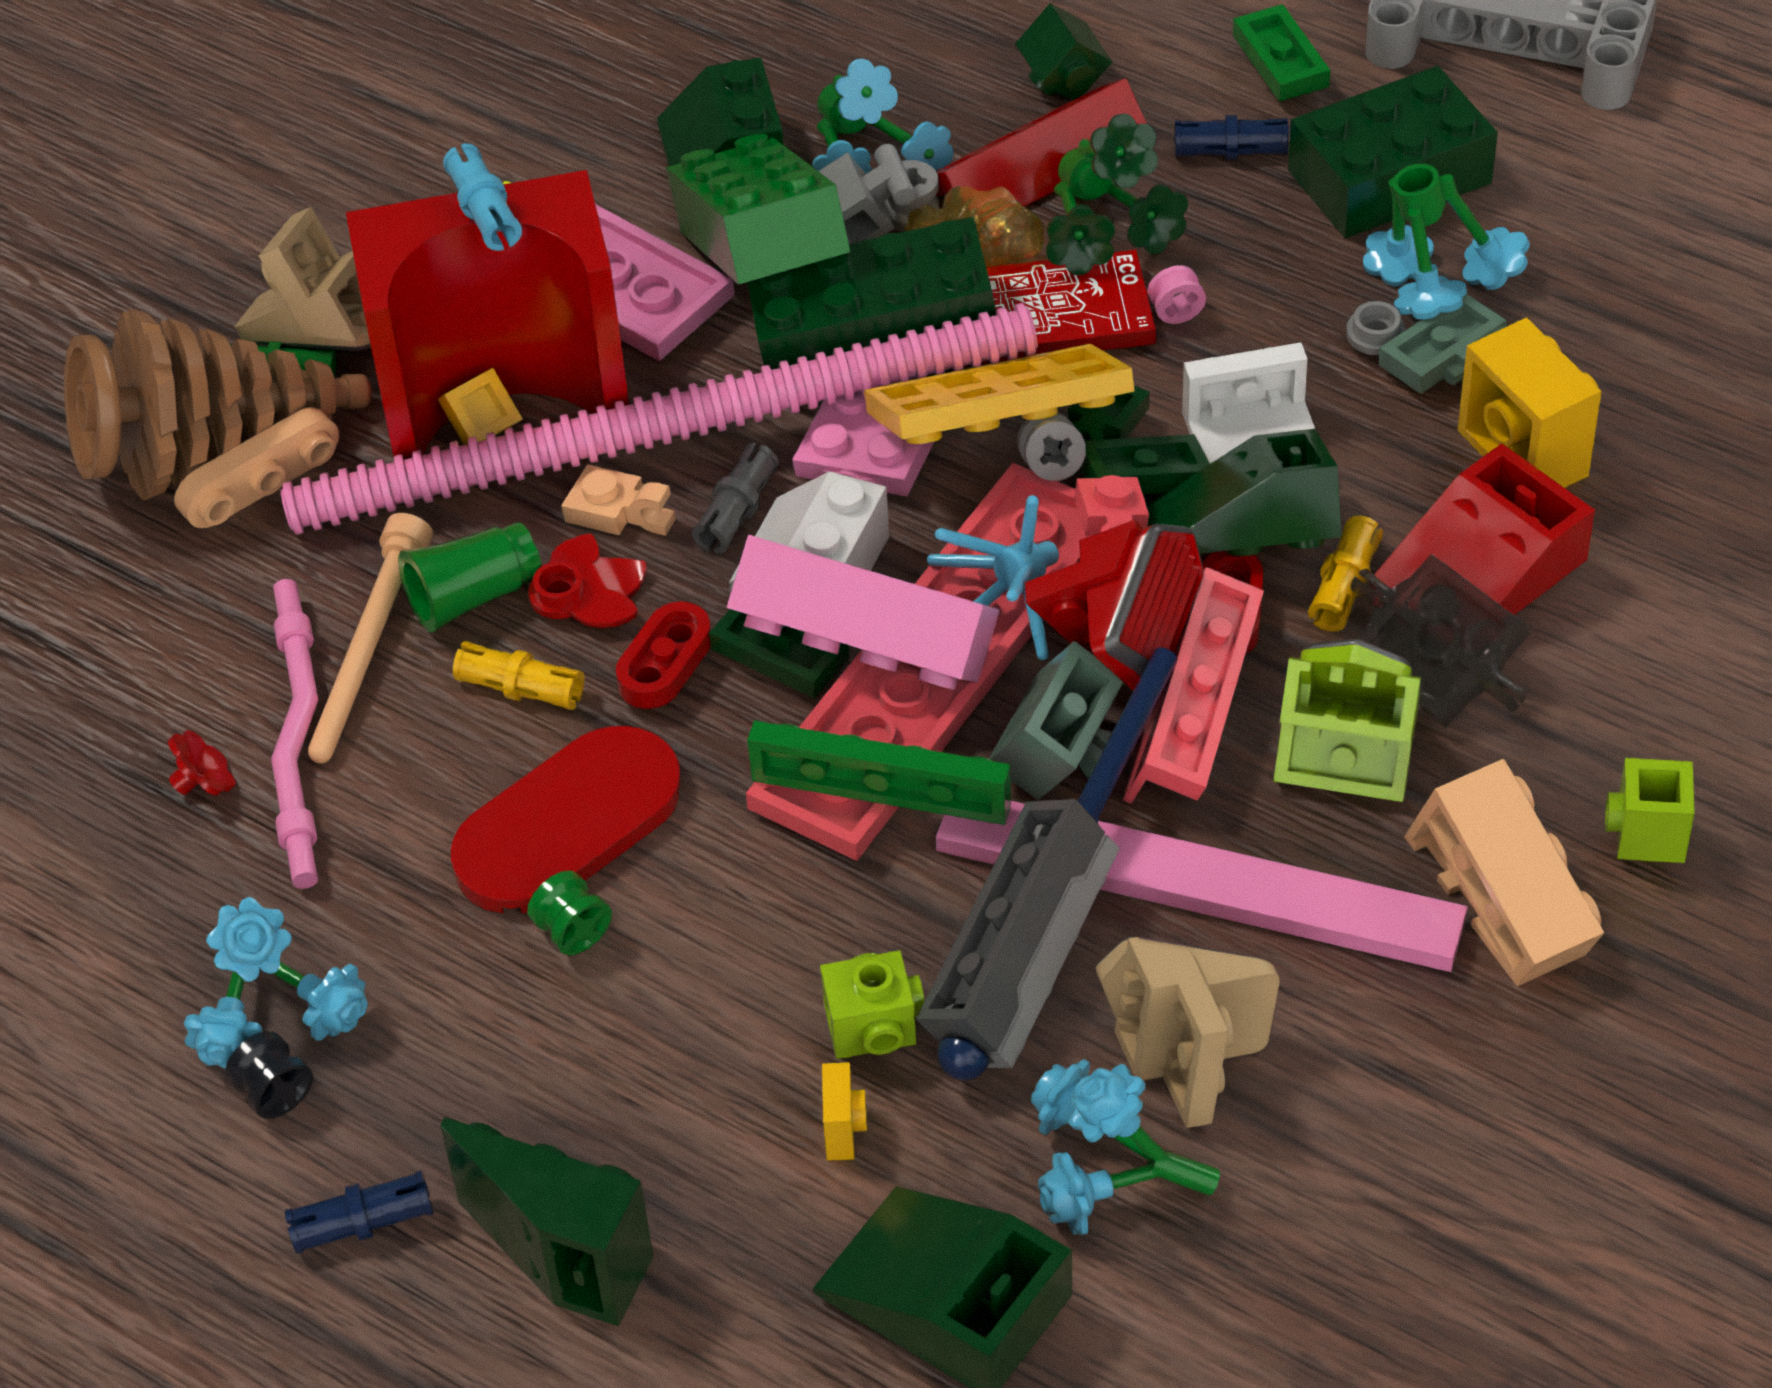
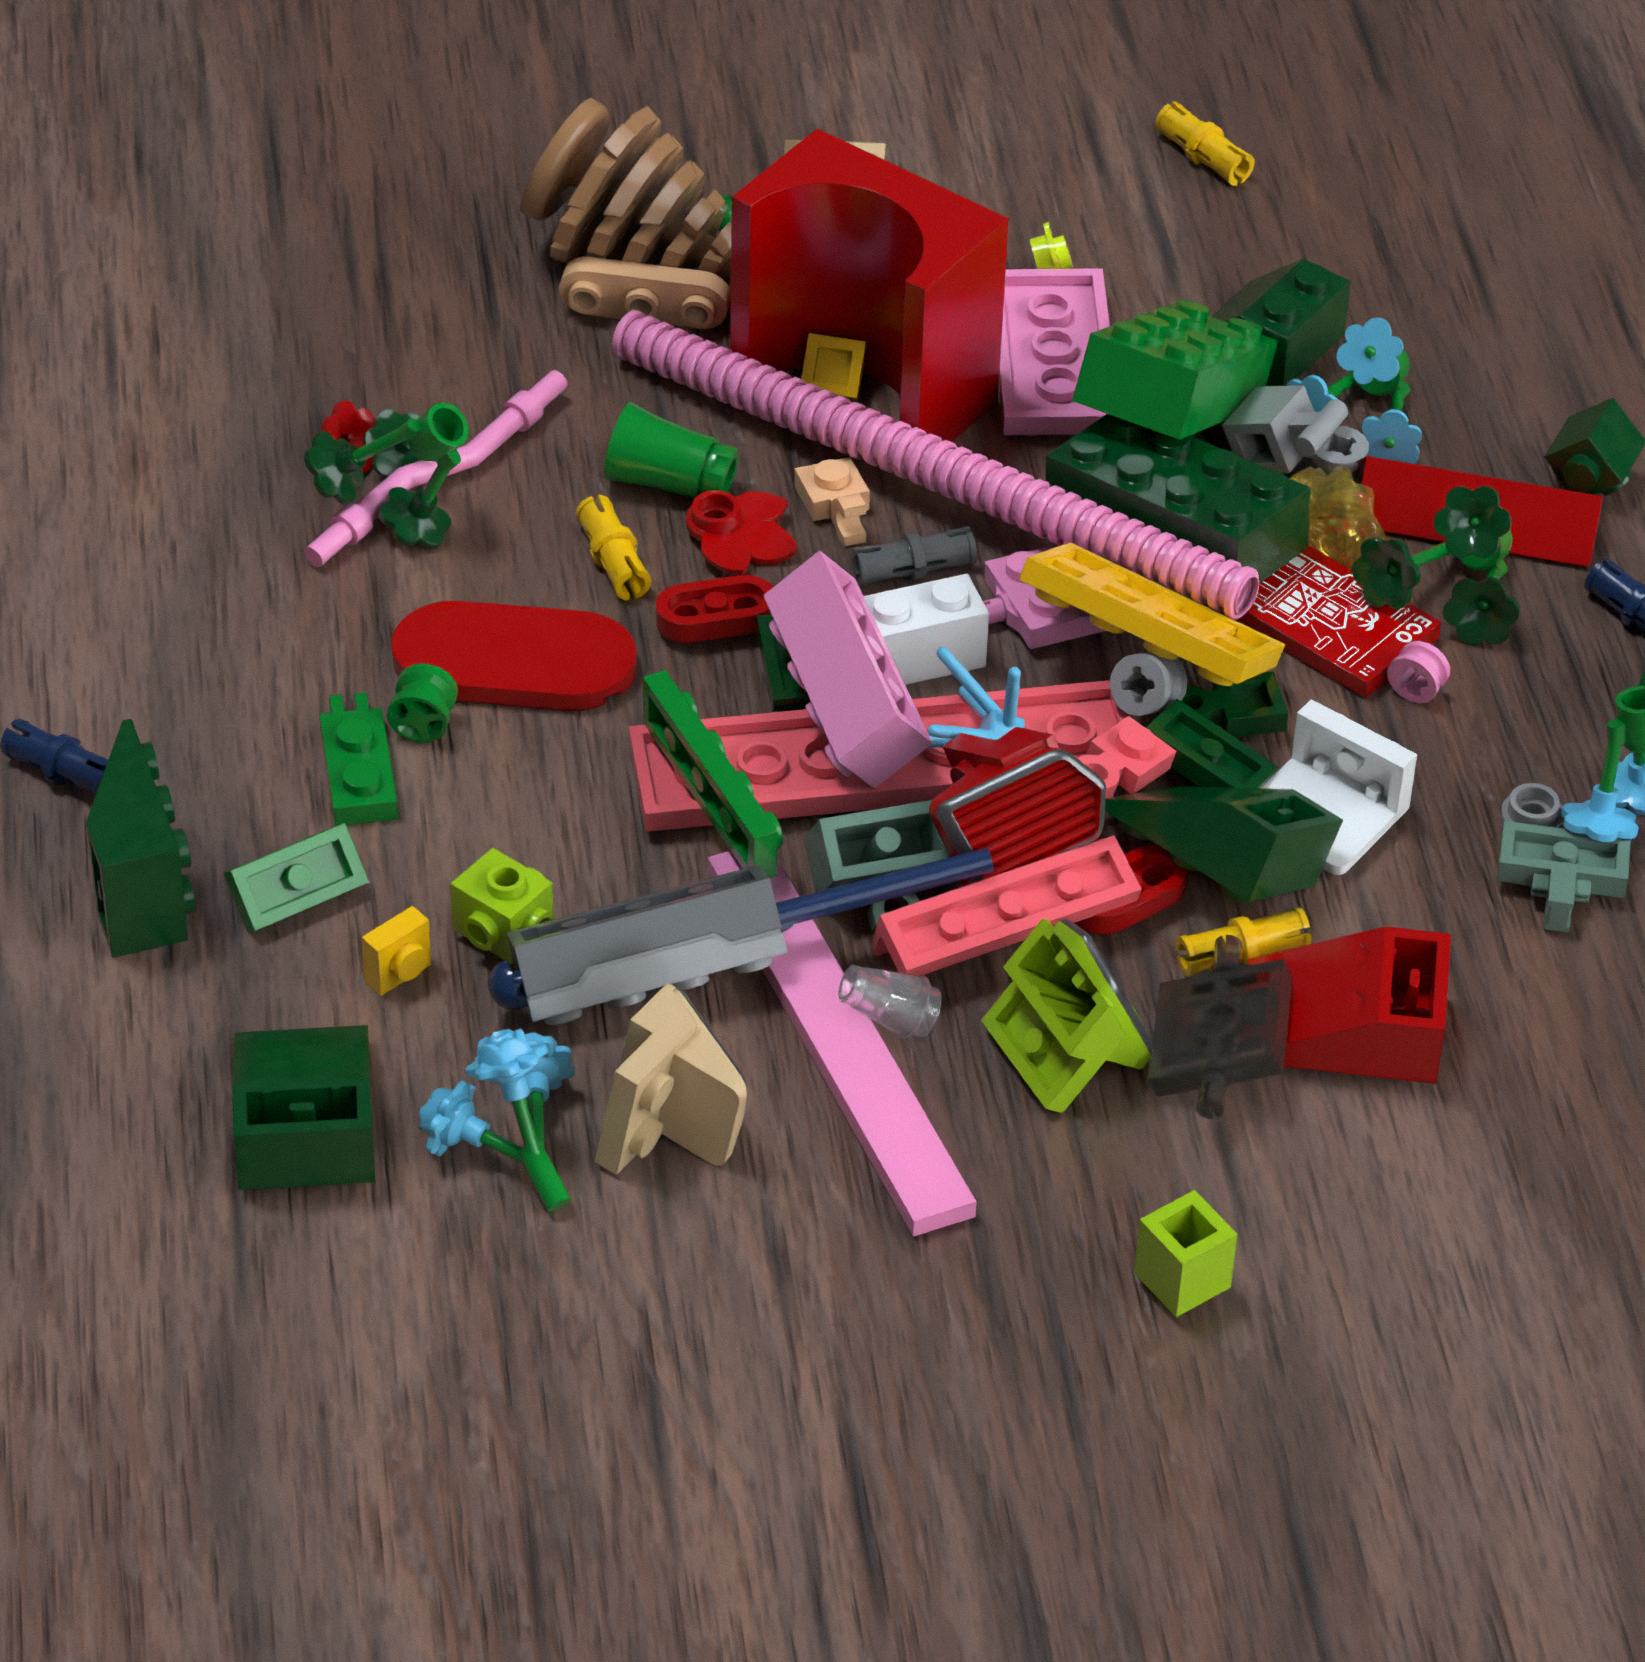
camera: 45 degrees right, 5 degrees down
(253, 942) = (189, 542): medium azure plant -> none
(268, 1074) = (125, 640): black wheel -> none
(330, 693) = (393, 444): none -> dark green plant
(400, 533) = (664, 402): light nougat piece -> none
(482, 197) = (903, 179): medium azure pin -> none
(483, 44) = (1204, 143): none -> yellow pin
(574, 1001) = (358, 762): none -> green hinge
(681, 1129) = (296, 877): none -> plate
(1219, 817) = (892, 999): none -> clear cone
(1508, 872) = (1020, 1196): light nougat wedge -> none
(1531, 400) = (1528, 940): yellow brick -> none

